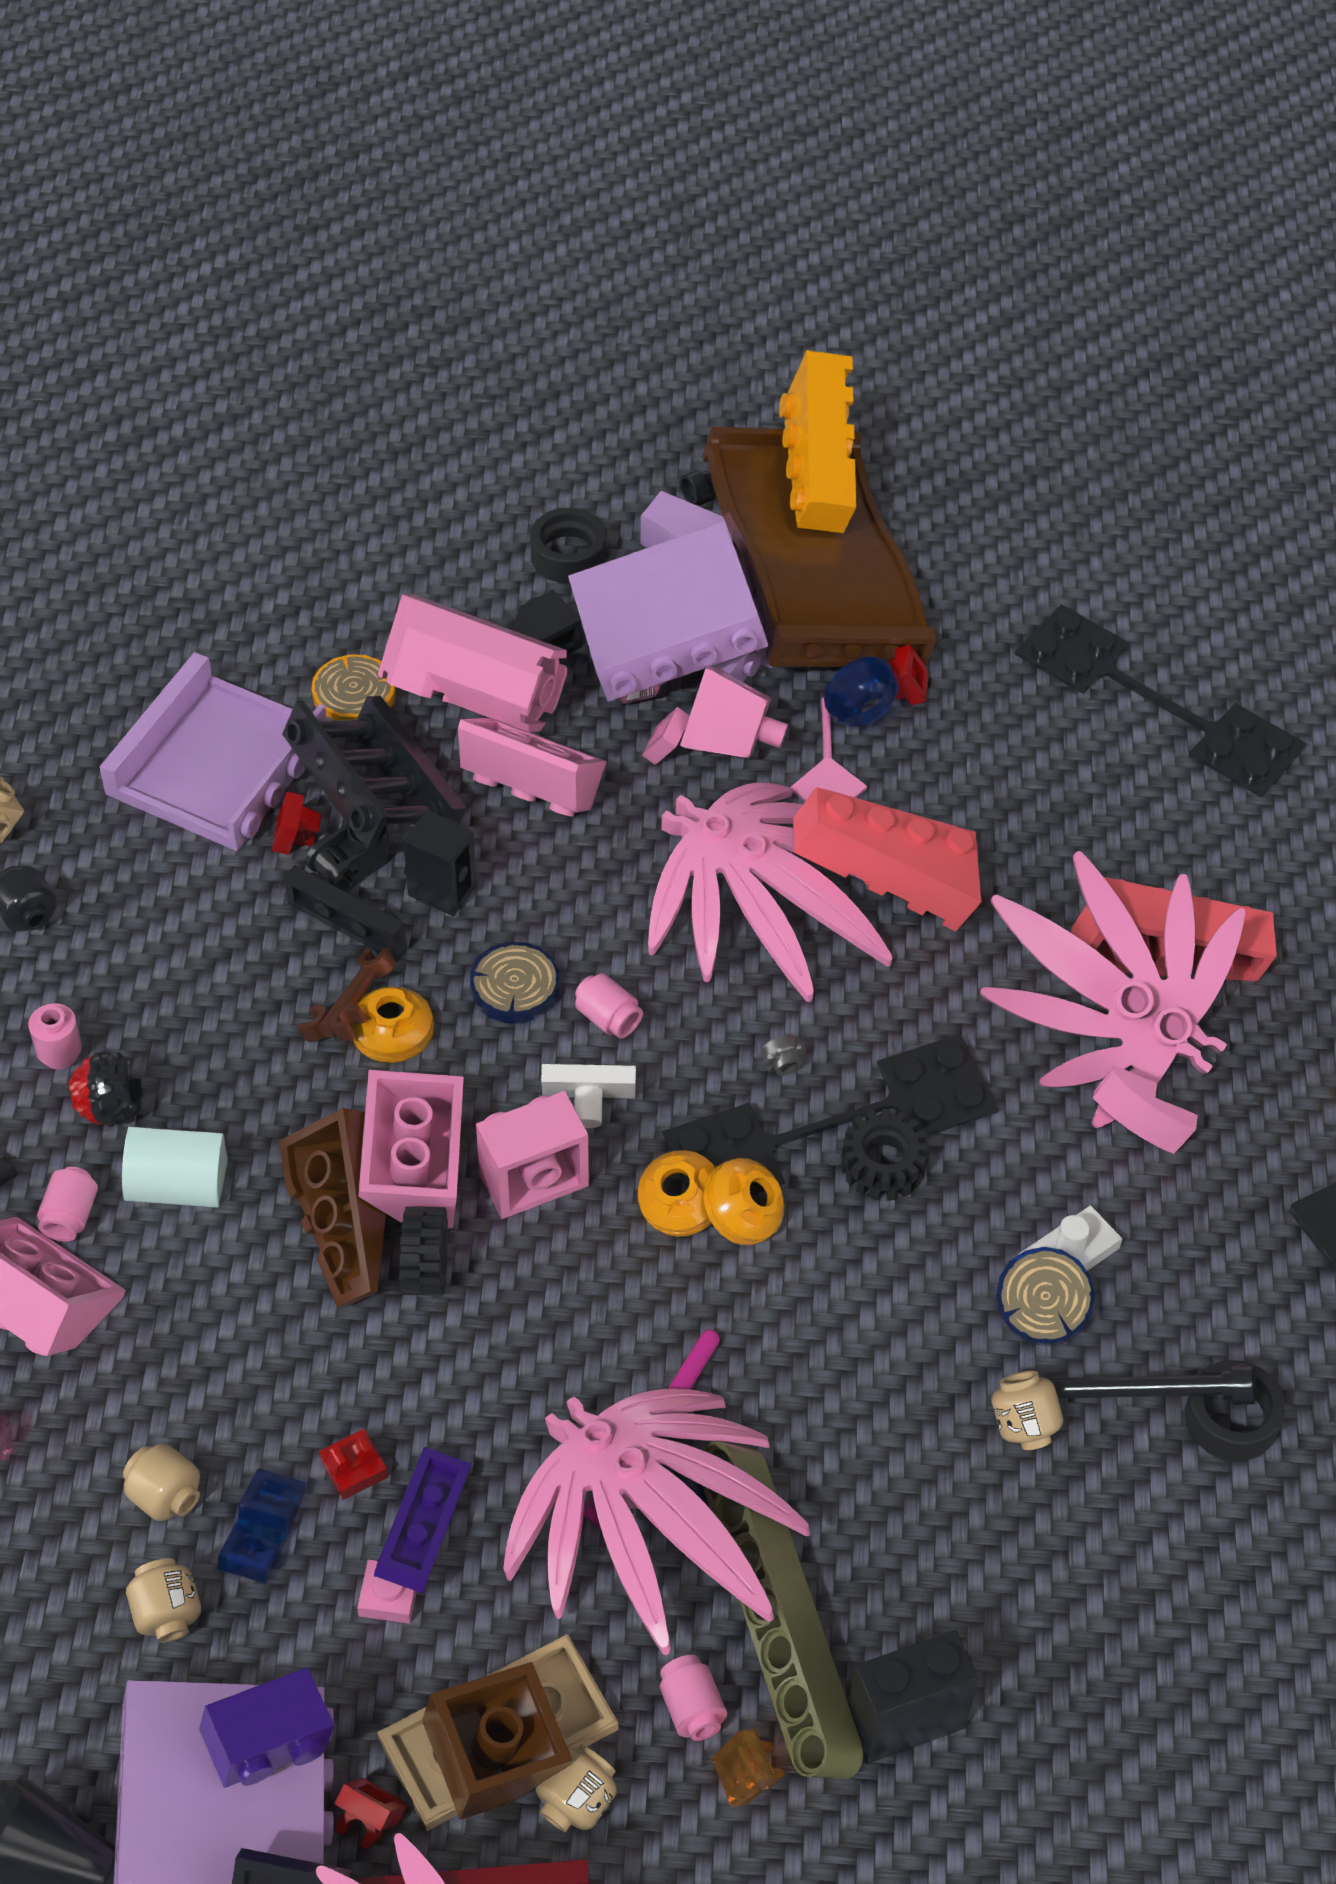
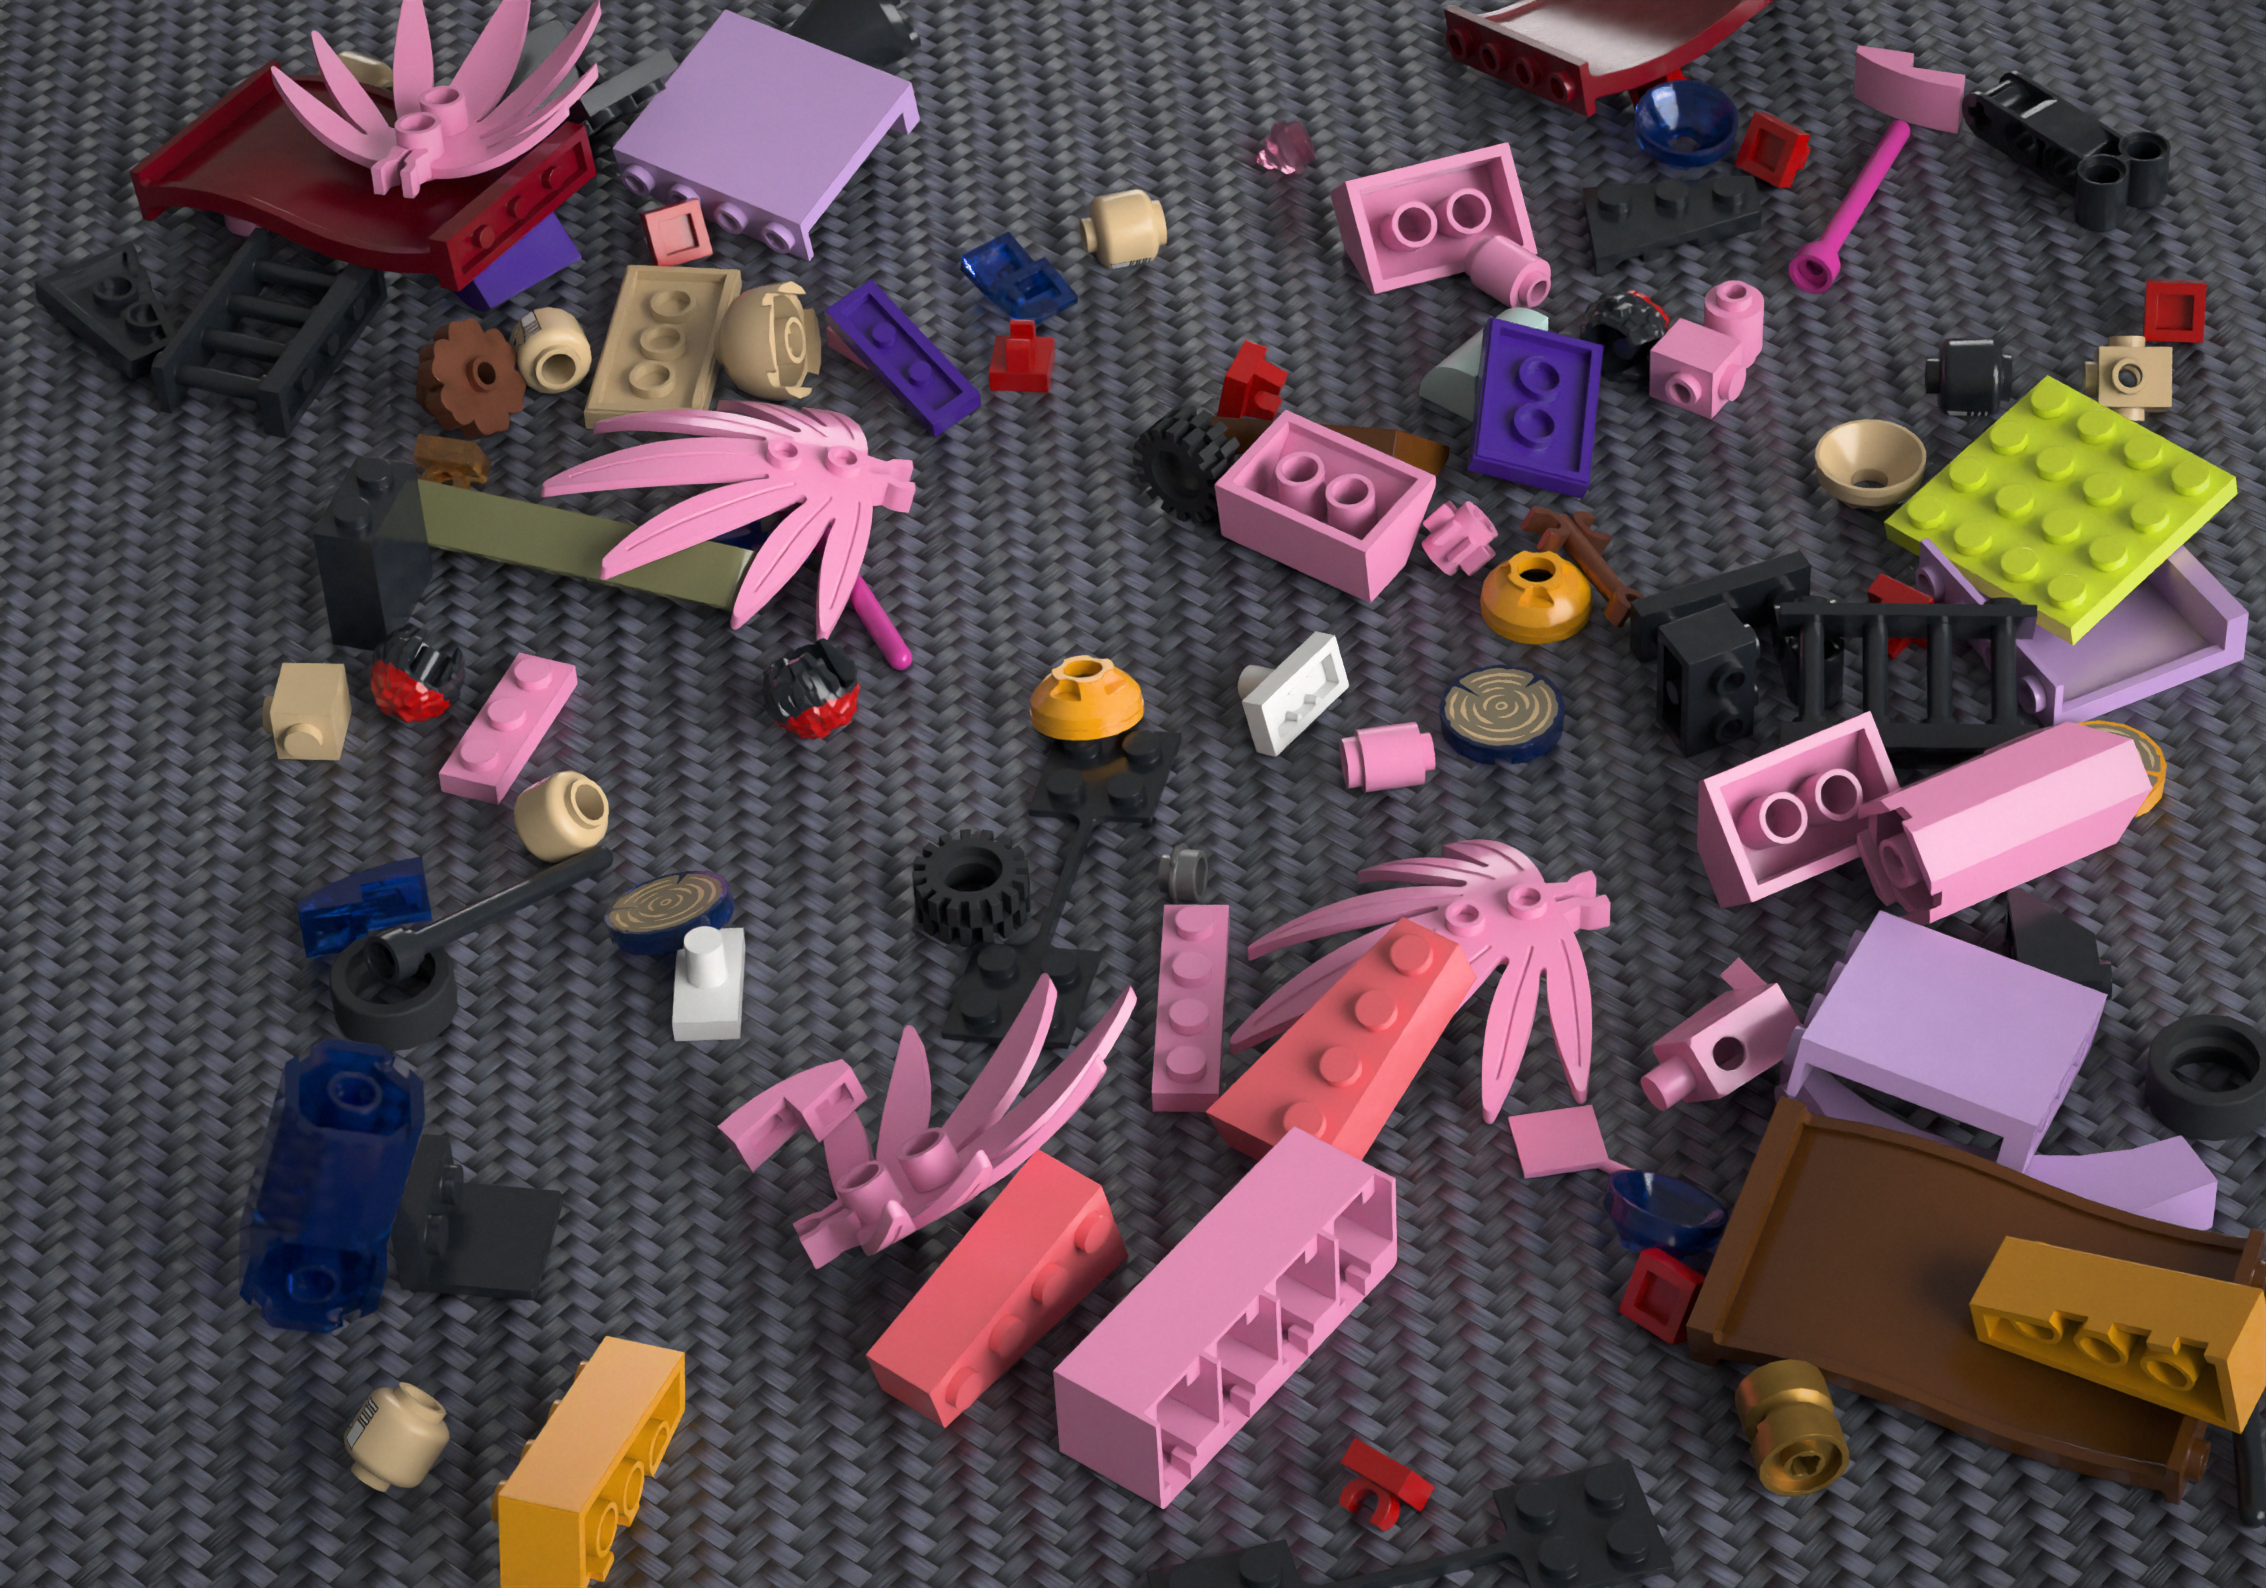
camera: 130 degrees right, 10 degrees down
(112, 1030) = (1696, 368): none -> bright pink brick
(151, 887) = (1873, 453): none -> tan piece
(154, 773) = (2063, 507): none -> neon yellow plate
(163, 1600) = (998, 183): tan head -> none
(221, 1095) = (1535, 407): none -> dark purple tile
(266, 1728) = (772, 131): dark purple brick -> none
(298, 1288) = (1250, 385): none -> red tile
(376, 1059) = (1459, 538): none -> bright pink gear
(471, 1623) = (769, 342): none -> tan cylinder
(494, 1739) = (635, 276): reddish brown slope -> none
(532, 1154) = (1227, 582): bright pink brick -> none
(666, 1811) = (470, 379): none -> copper plant
(692, 1698) = (543, 454): bright pink brick -> none
(732, 1207) = (1033, 744): light orange piece -> none
(802, 1341) = (811, 690): none -> black piece
(876, 998) = (1191, 1008): none -> bright pink plate
(953, 584) = (1791, 1428): none -> pearl gold wheel
(958, 1532) = (508, 728): none -> bright pink plate
(979, 1600) = (413, 677): none -> piece
(1060, 1657) = (309, 711): none -> tan brick
(1116, 821) = (1226, 1317): none -> bright pink piece
(1126, 723) = (1382, 1478): none -> red tile
(1203, 1486) = (363, 902): none -> clear blue slope

